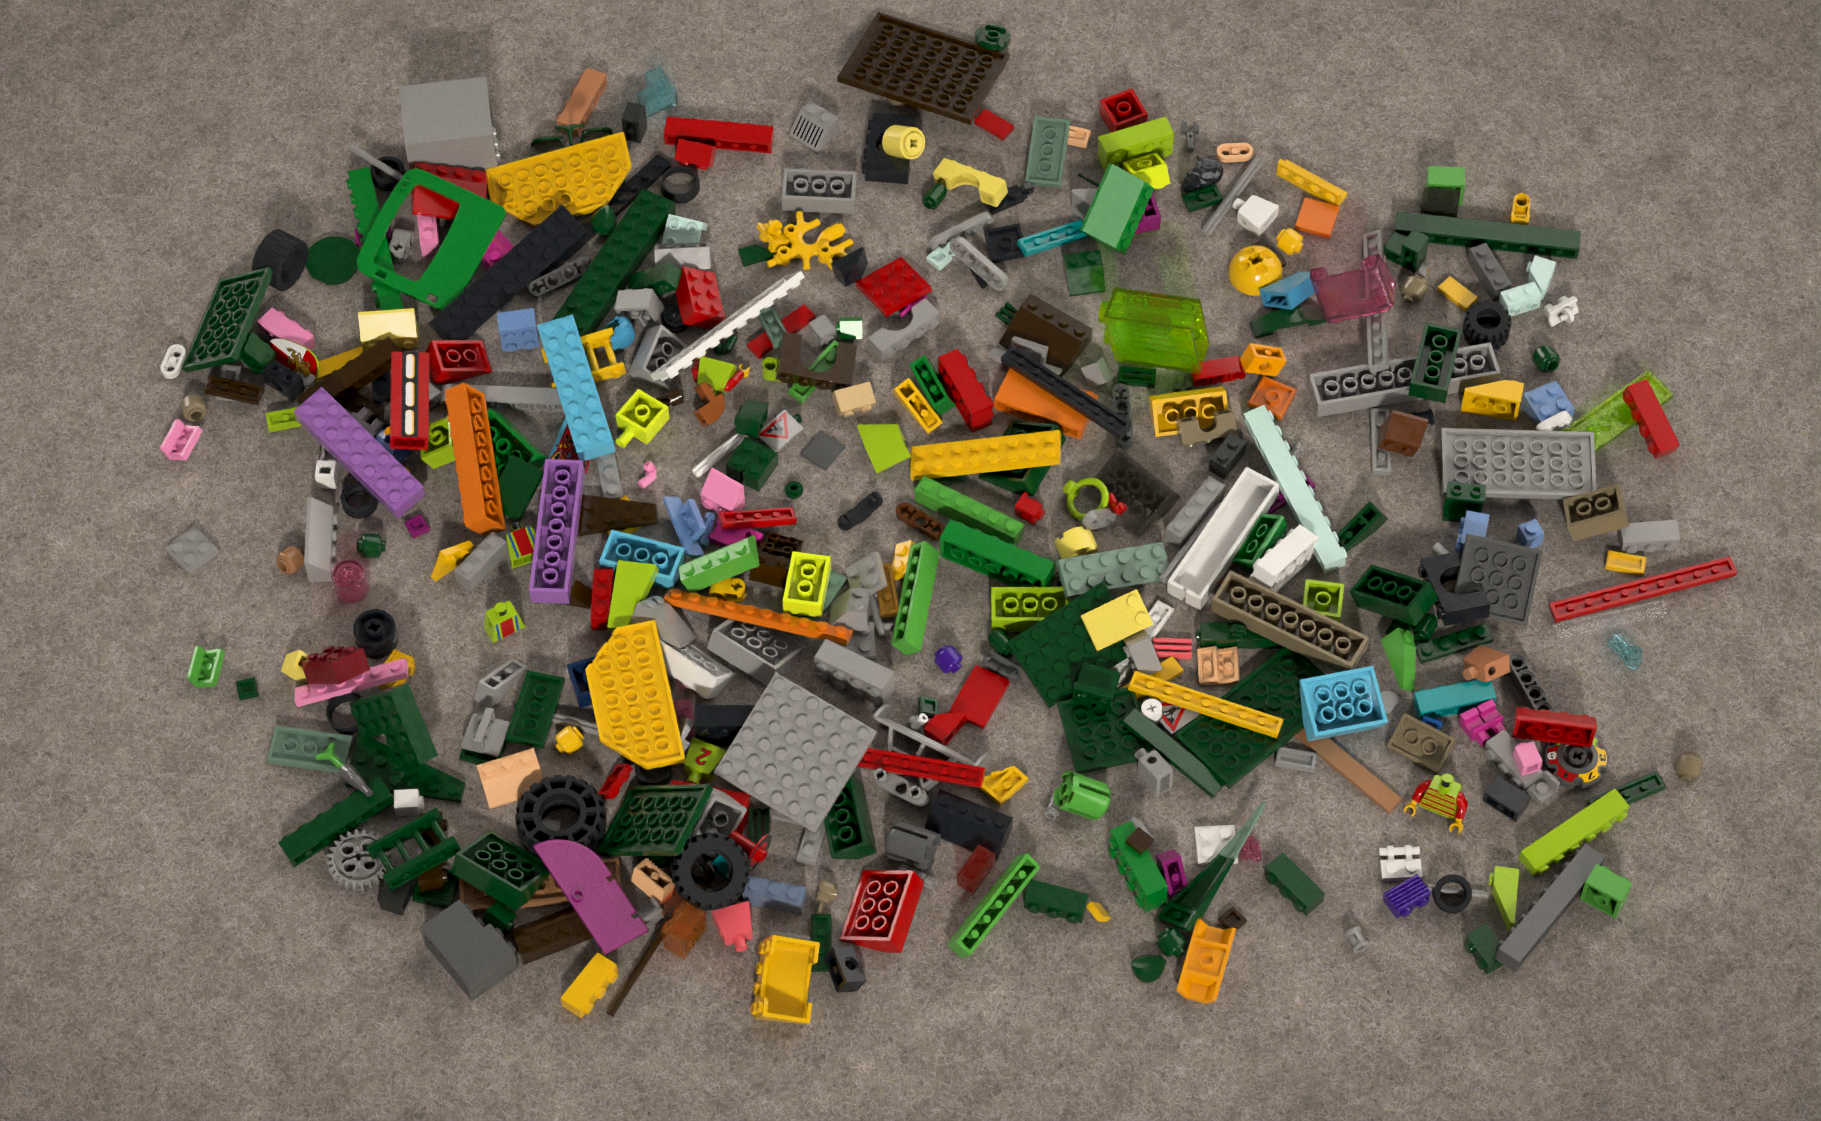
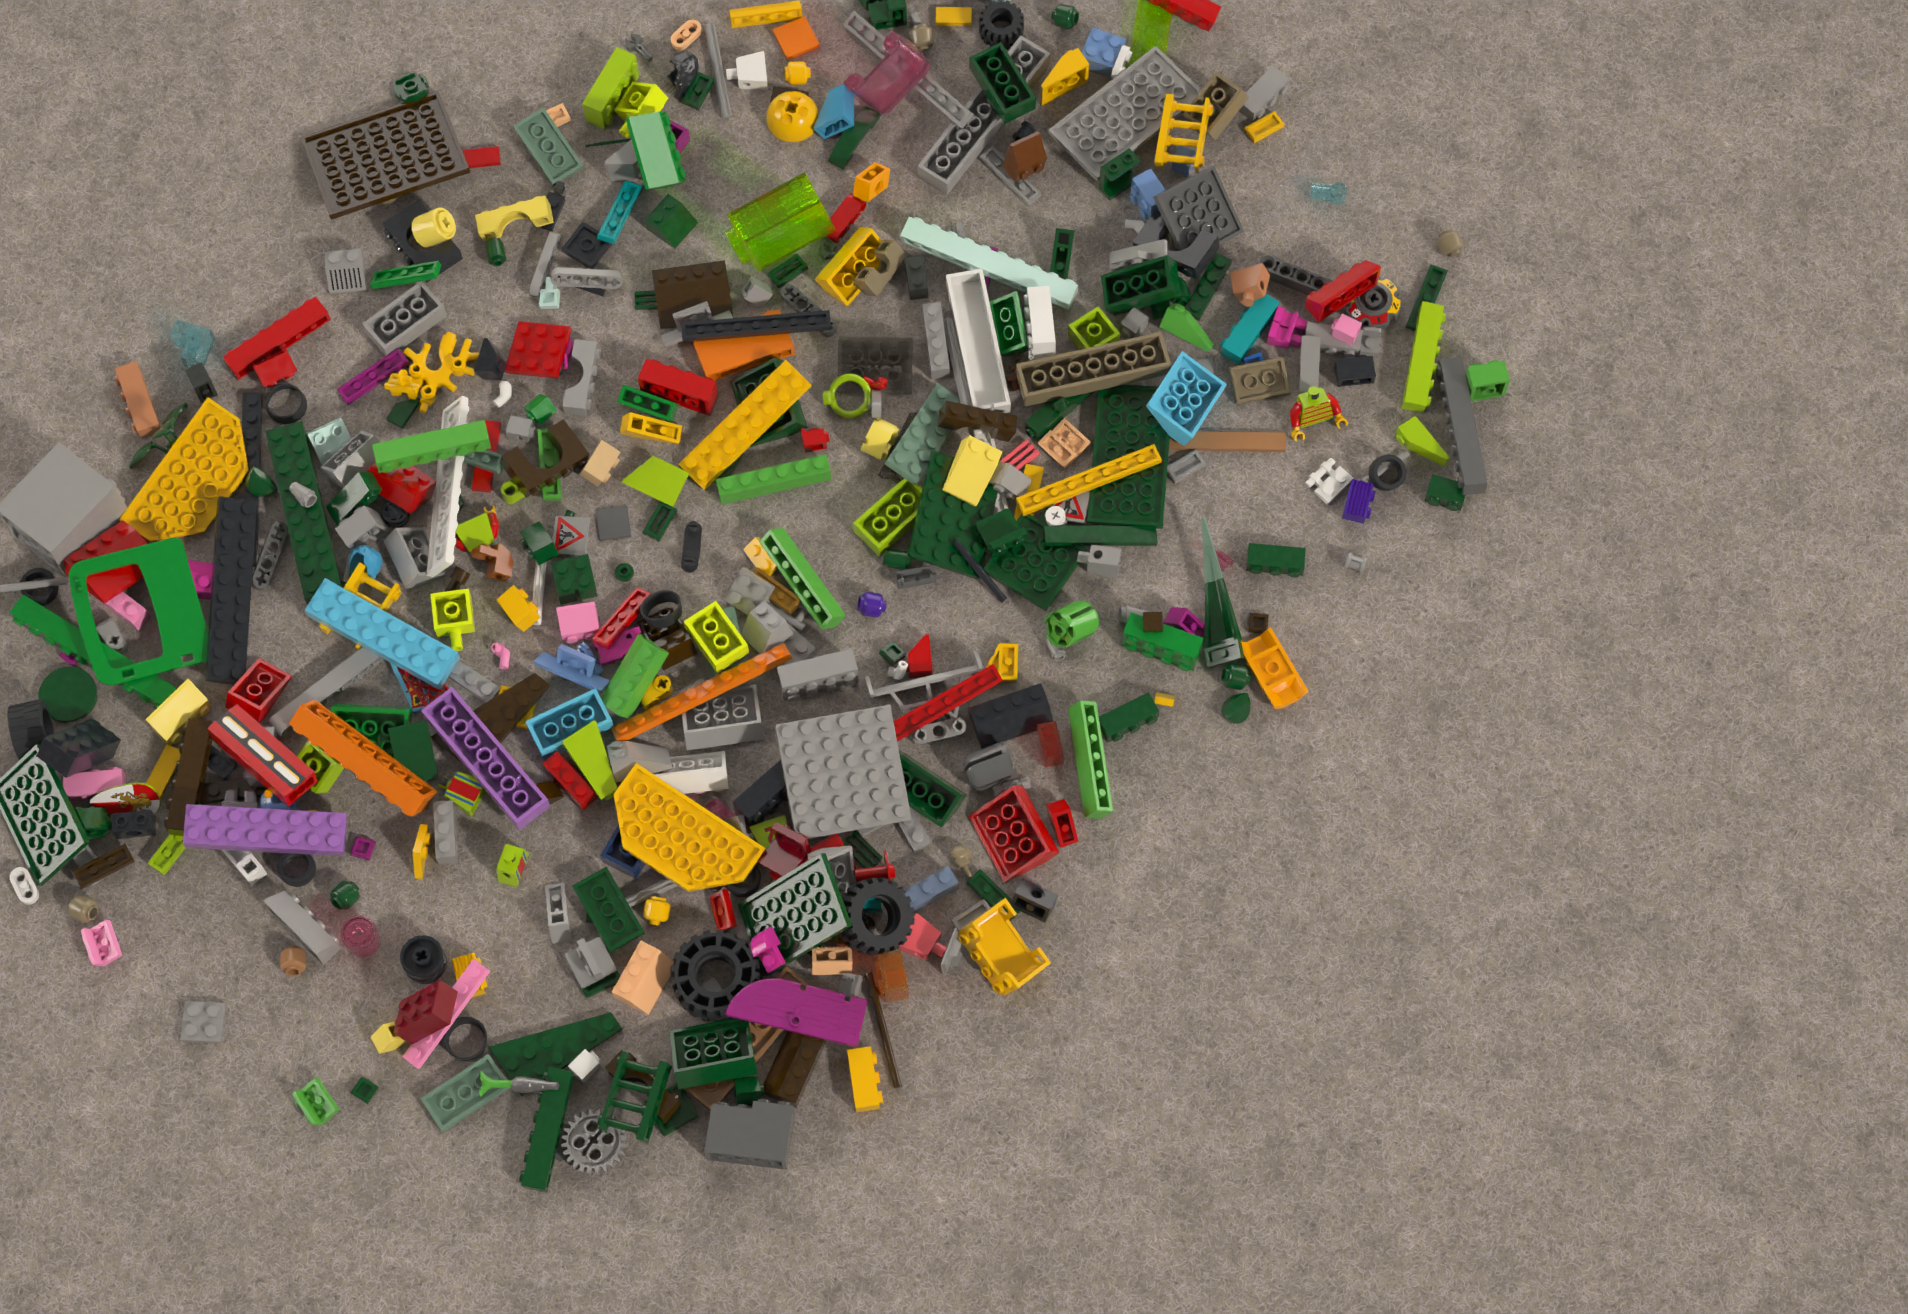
camera: 45 degrees left, 10 degrees up
(296, 294) = (78, 747): none -> black brick
(397, 899) = (652, 1150): pearl dark grey brick -> none
(400, 720) = (525, 1009): dark green piece -> none
(518, 329) = (284, 626): medium blue brick -> none
(613, 826) = (766, 948): none -> dark pink brick
(620, 250) = (304, 495): none -> light grey cone
(691, 451) = (519, 608): none -> yellow brick
(697, 771) = (786, 850): none -> bracket
(739, 285) = (431, 446): none -> bright green brick
(743, 951) = (952, 955): none -> light grey piece
(758, 213) = (373, 376): none -> magenta tile
(790, 525) = (656, 599): none -> black tyre
(839, 299) = (505, 393): none -> white arm
(851, 160) = (405, 275): none -> green tile
(858, 478) = (653, 534): none -> dark green tile
(916, 513) = (736, 511): reddish brown beam -> none
(926, 933) = (1062, 822): none -> red slope
(980, 696) = (920, 612): red tile -> none
(995, 557) = (832, 497): green brick -> none
(1053, 702) = (980, 571): none -> black bar
(1122, 111) = (575, 70): red brick -> none
(1176, 606) = (958, 416): none -> dark brown arch
(1211, 841) = (1189, 578): white plate -> none
(1273, 396) = (900, 205): orange tile -> none
(1363, 621) = (1133, 324): none -> light grey brick
(1414, 569) = (1137, 254): none -> light grey bracket
(1475, 761) = (1309, 362): none -> light grey tile
(1541, 493) = (1169, 123): none -> yellow fence
(1642, 589) = (1295, 137): red plate -> none

